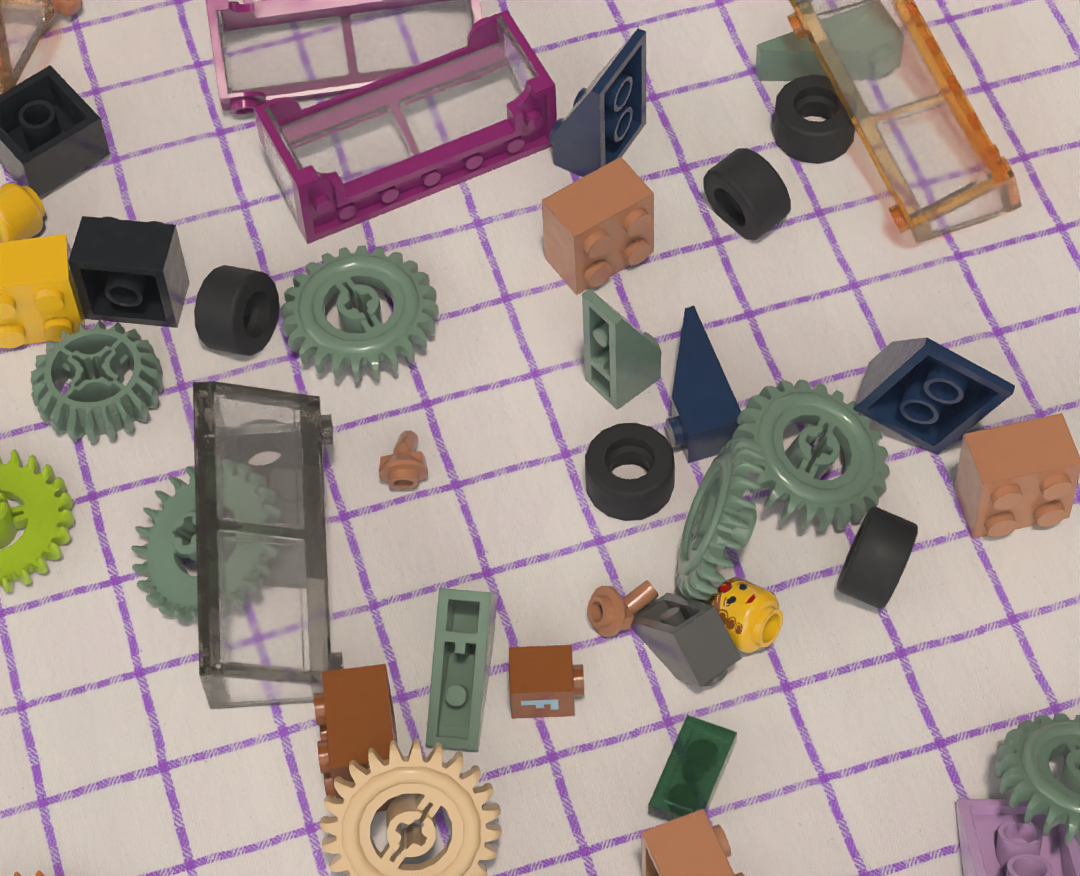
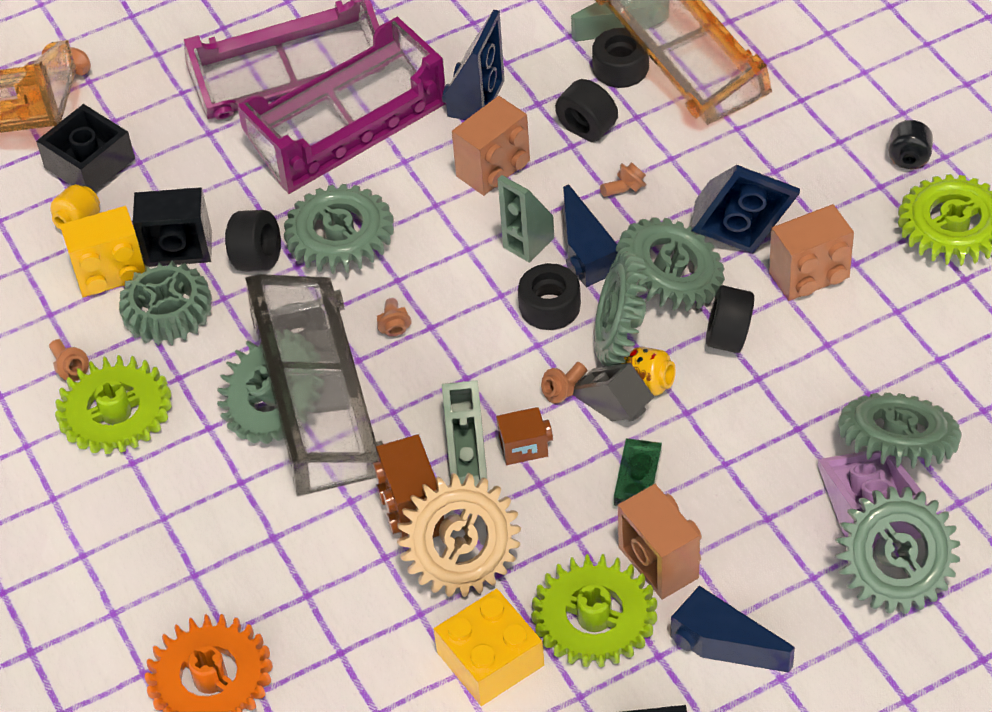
camera: 10 degrees left, 5 degrees down
(788, 307) = (630, 177): none -> nougat plate

